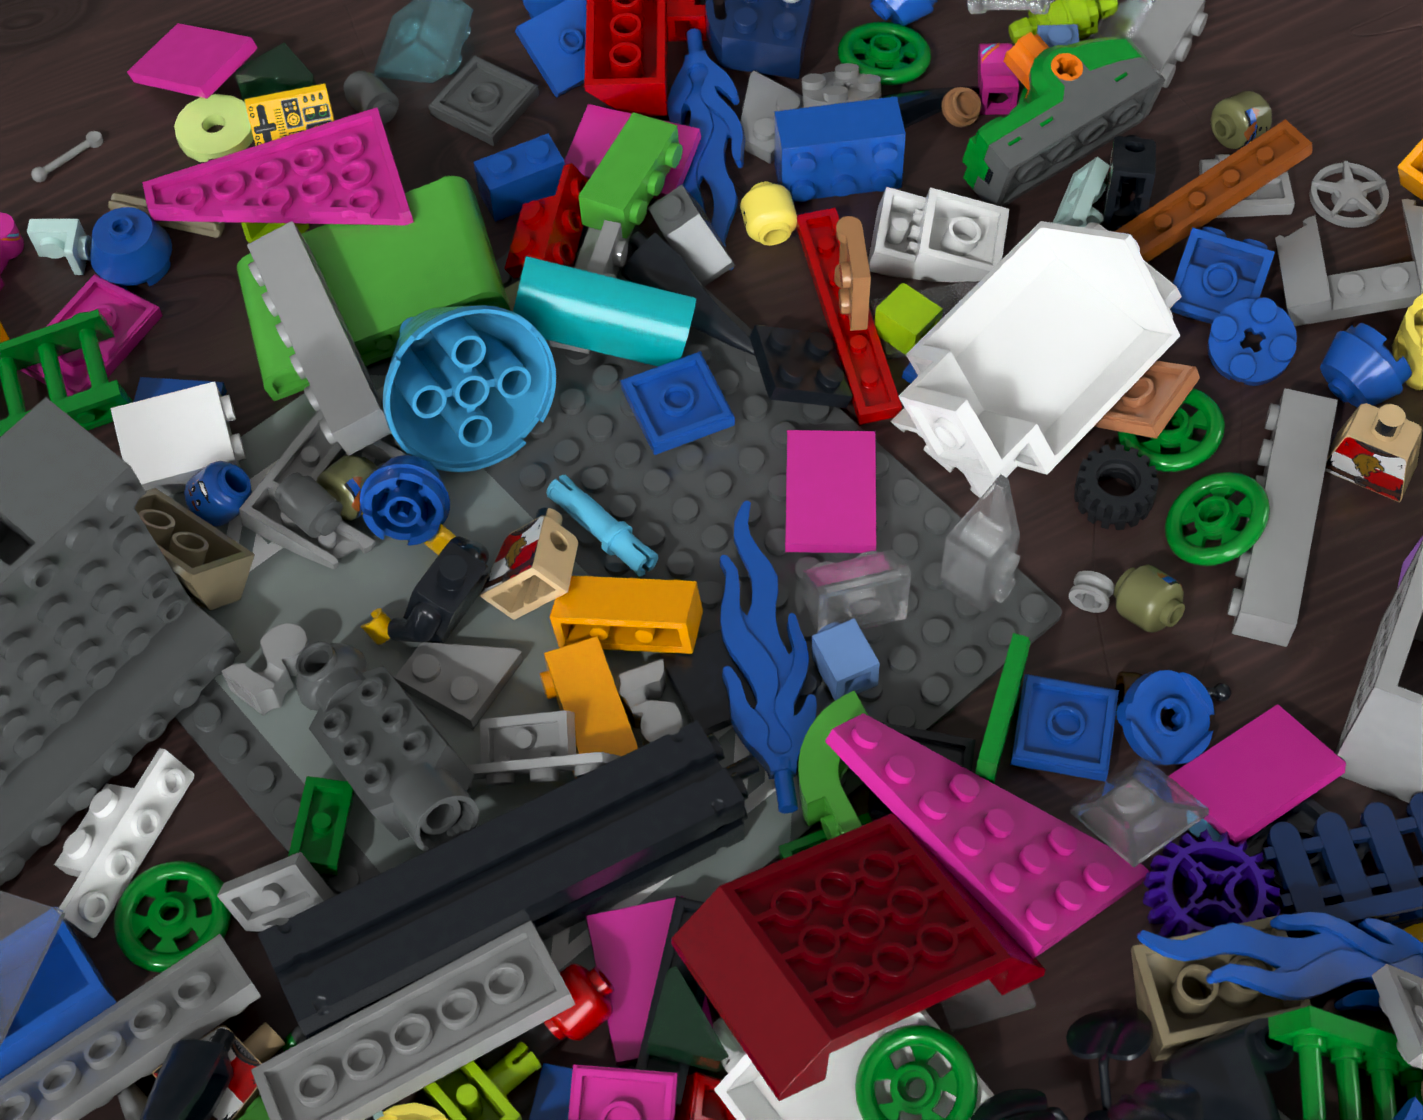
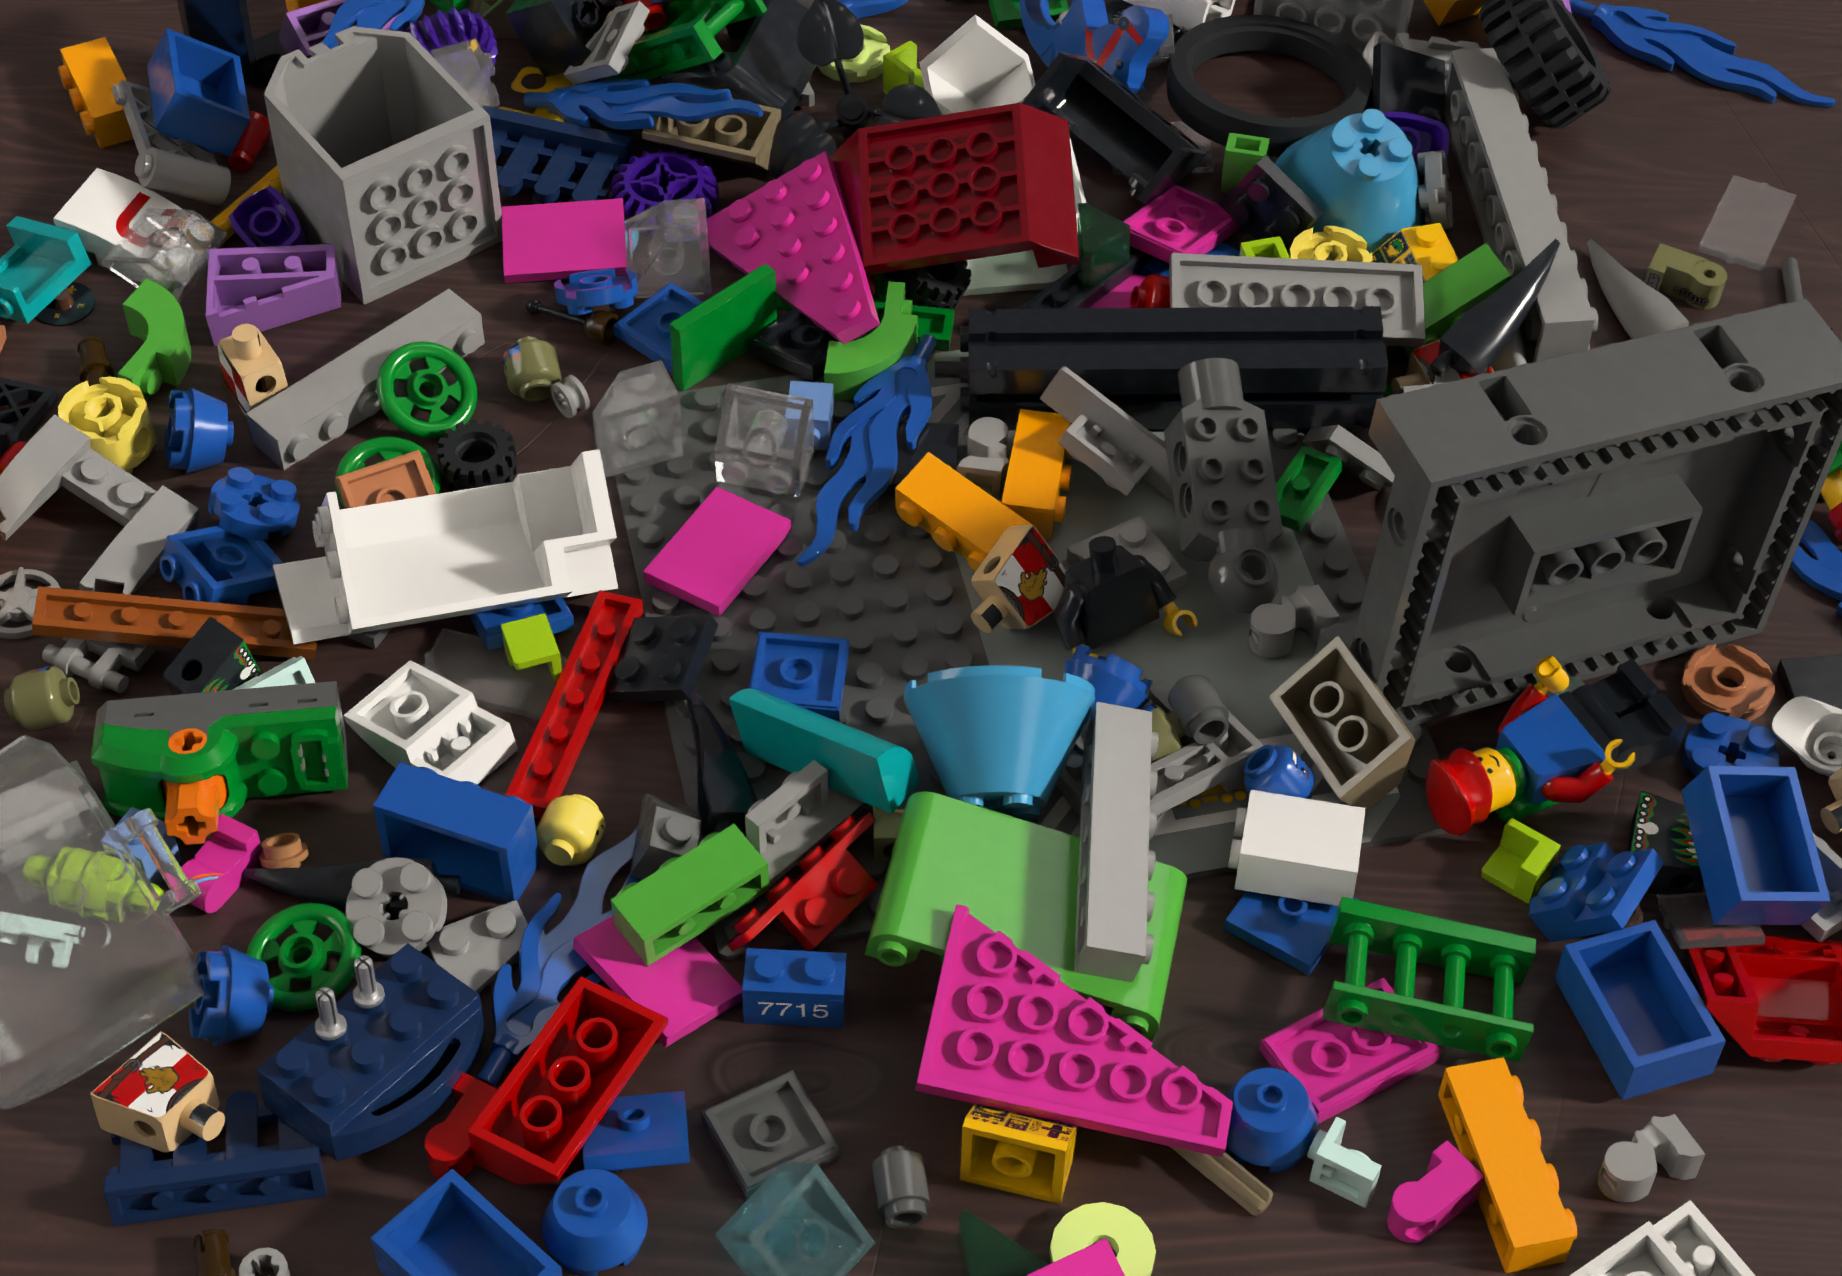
camera: 155 degrees left, 10 degrees down
(614, 535) = (932, 590): medium azure pin -> none
(853, 273) = (561, 670): medium nougat plate -> none

